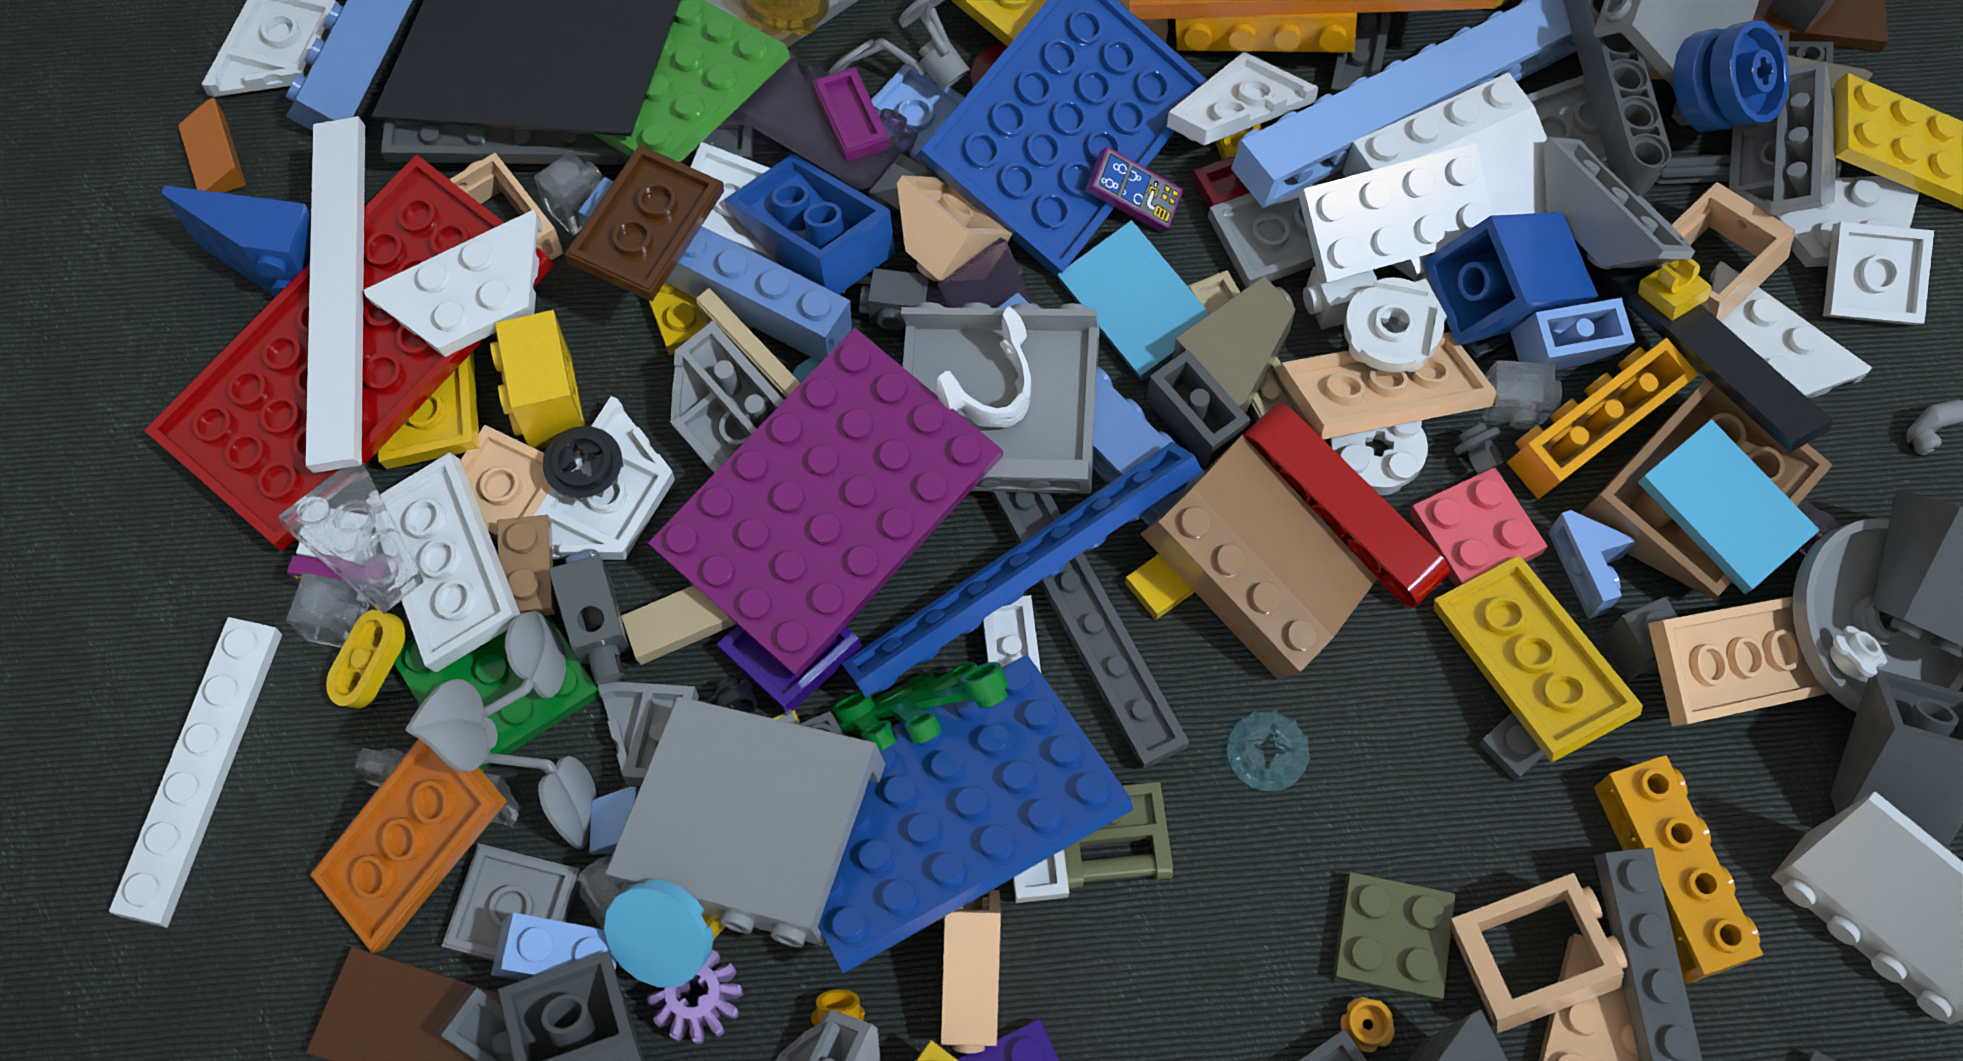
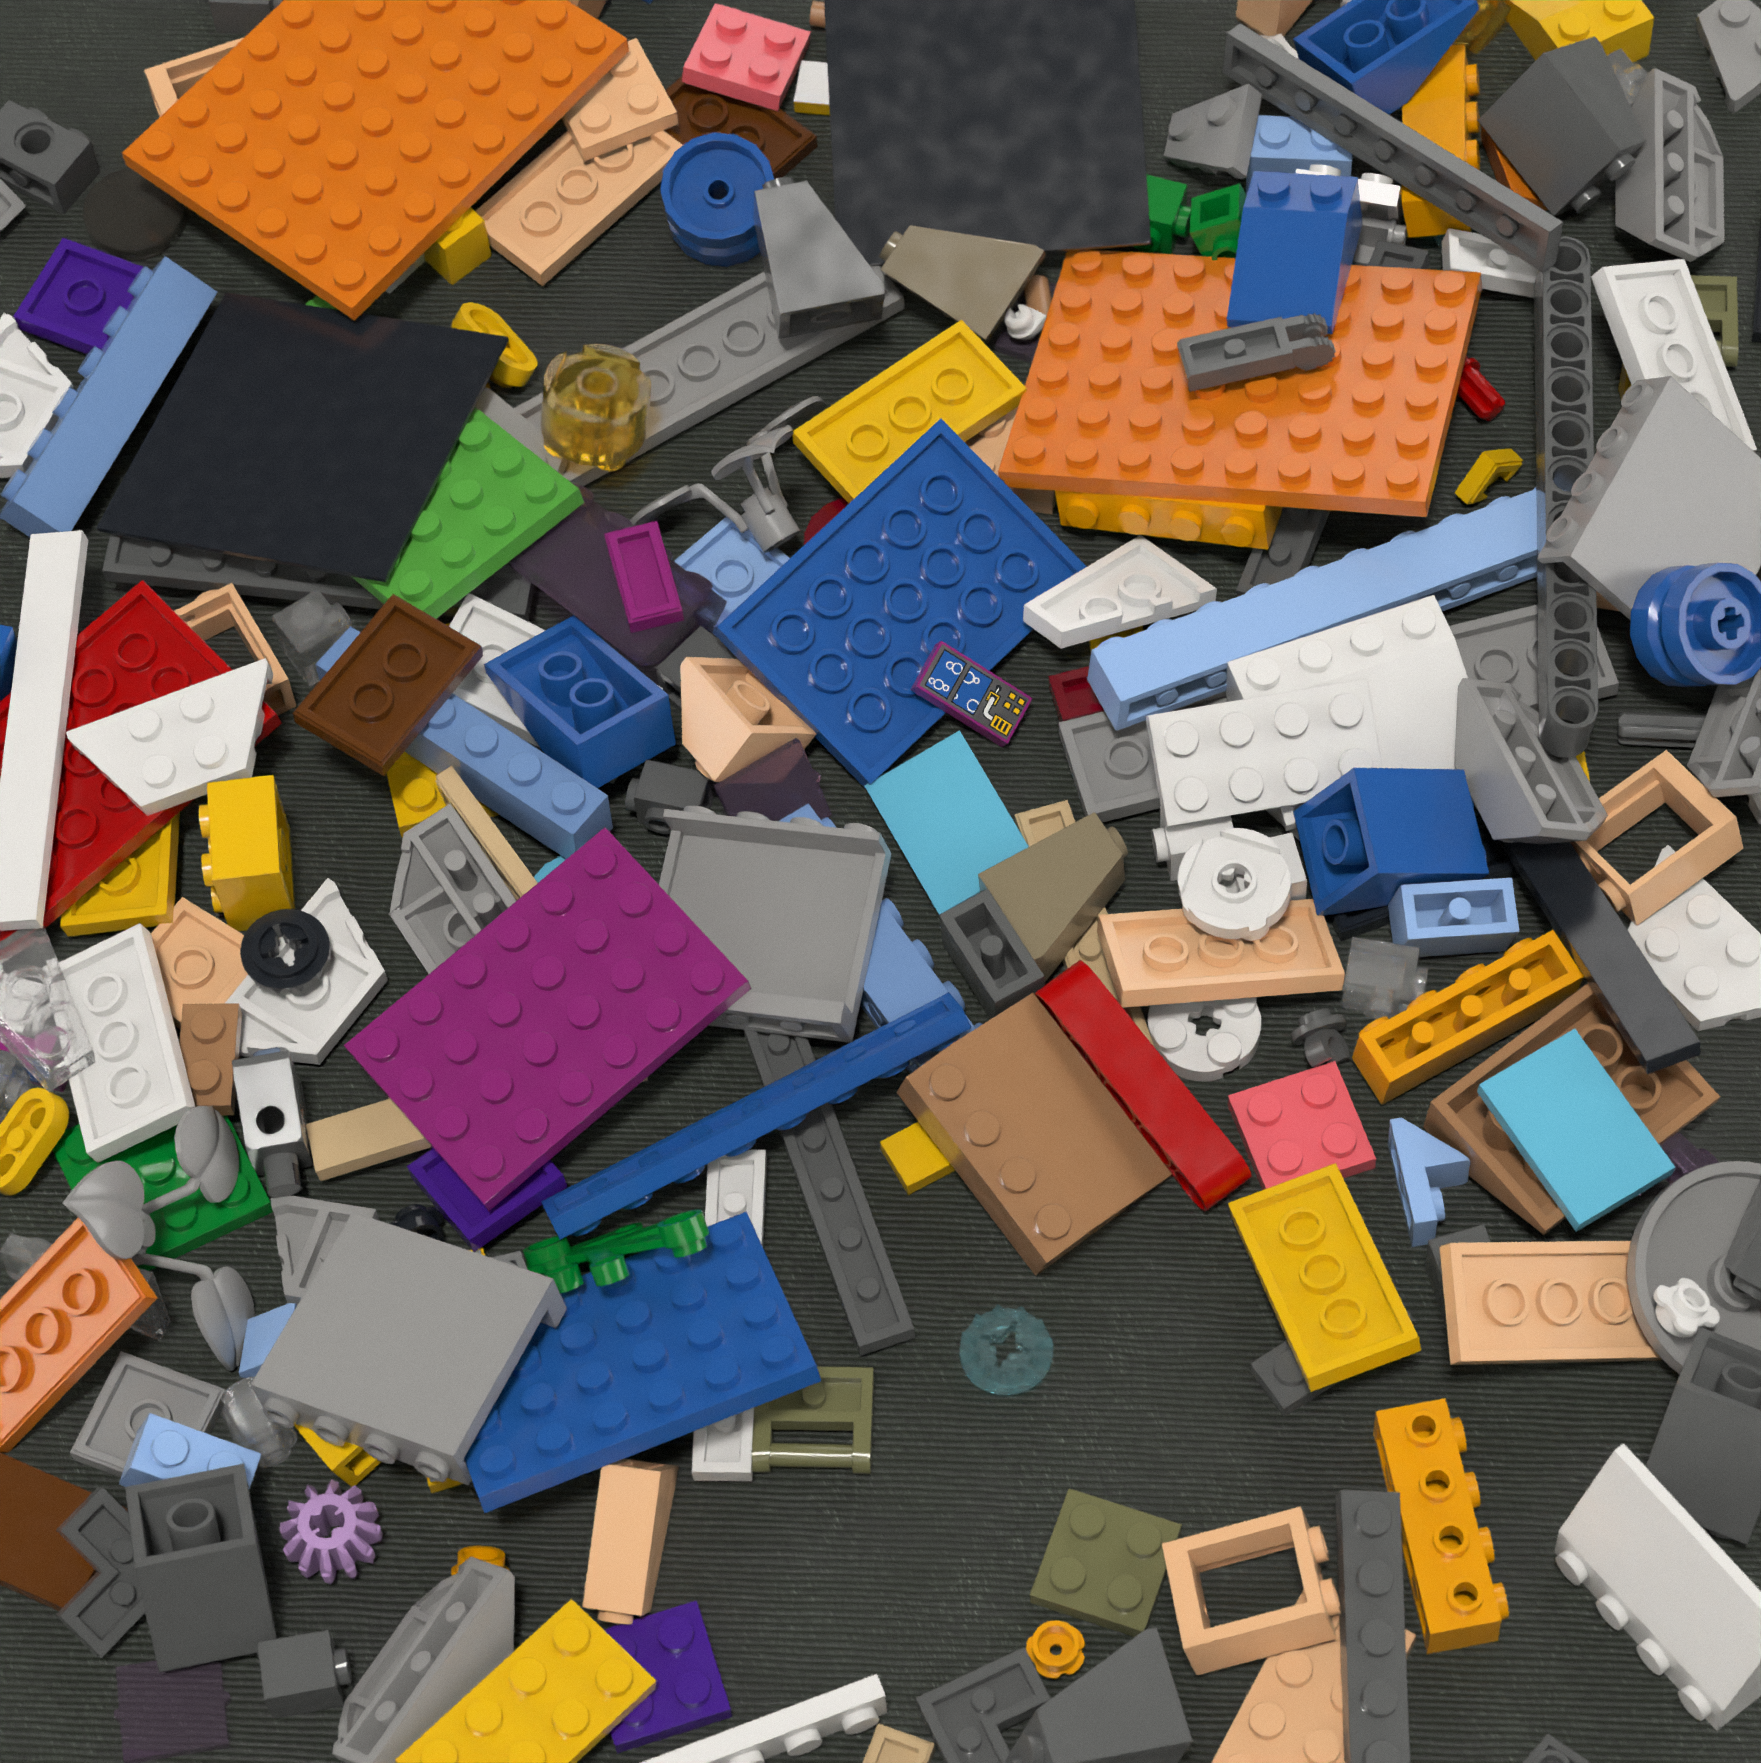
camera: 15 degrees right, 5 degrees down
(658, 933) = (297, 1451): medium azure tile -> none
(954, 397) = (702, 915): white helmet -> none
(1675, 288) = (1575, 873): yellow tile -> none

